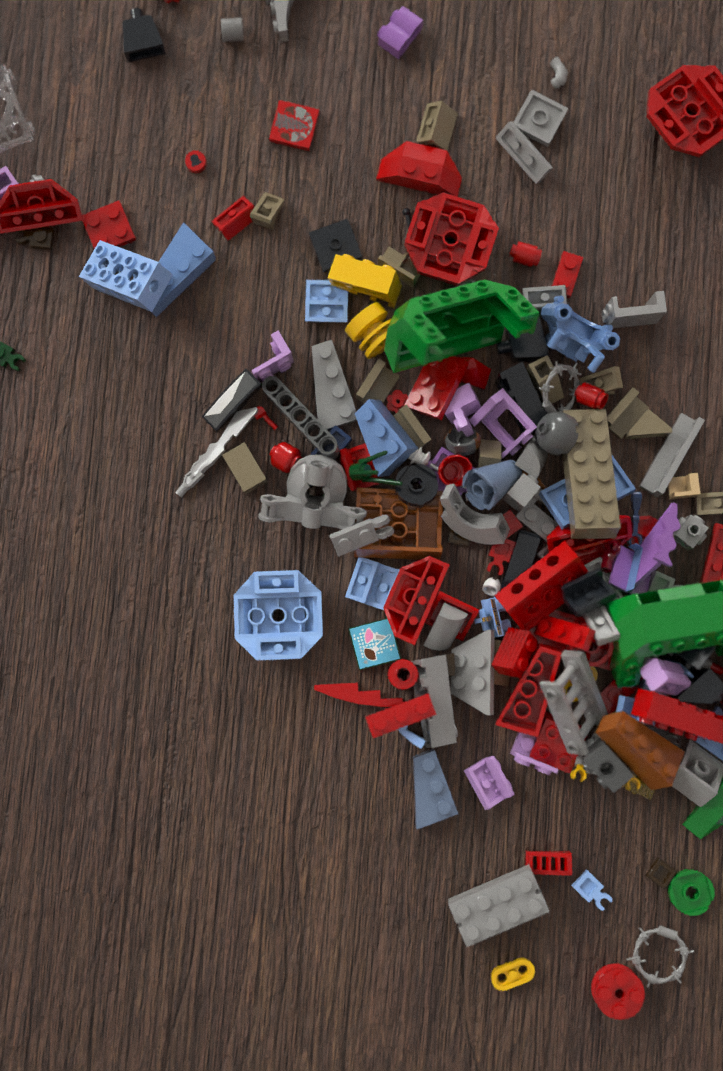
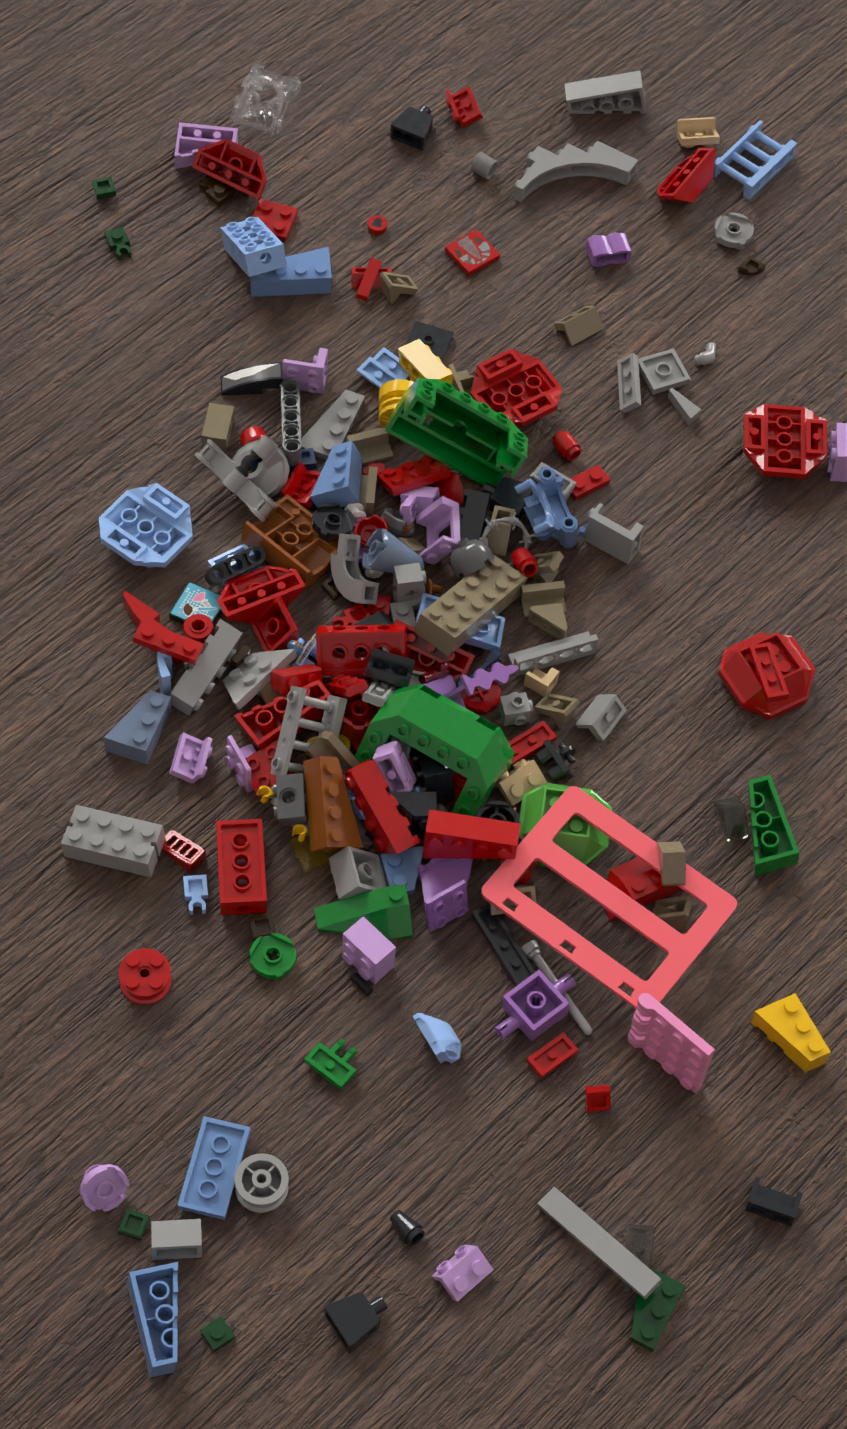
camera: 35 degrees right, 25 degrees down
(215, 450) = (204, 403): light grey sword -> none
(238, 223) = (368, 279): none -> red piece
(261, 413) = (264, 402): red hand -> none
(361, 534) = (255, 514): light grey hinge -> none
(363, 471) = (302, 483): dark green plant -> none
(368, 597) = (244, 562): none -> black beam
(420, 169) = (540, 339): red wedge -> none
(445, 628) = (261, 627): light grey brick -> none
(513, 976) = (77, 901): yellow plate -> none
(532, 458) = (438, 567): light grey brick -> none
(586, 139) = (686, 408): none -> light grey piece
(603, 700) = (330, 745): none -> dark tan panel
(640, 862) = (241, 867): none -> red brick
(666, 932) = (224, 967): light grey piece -> none

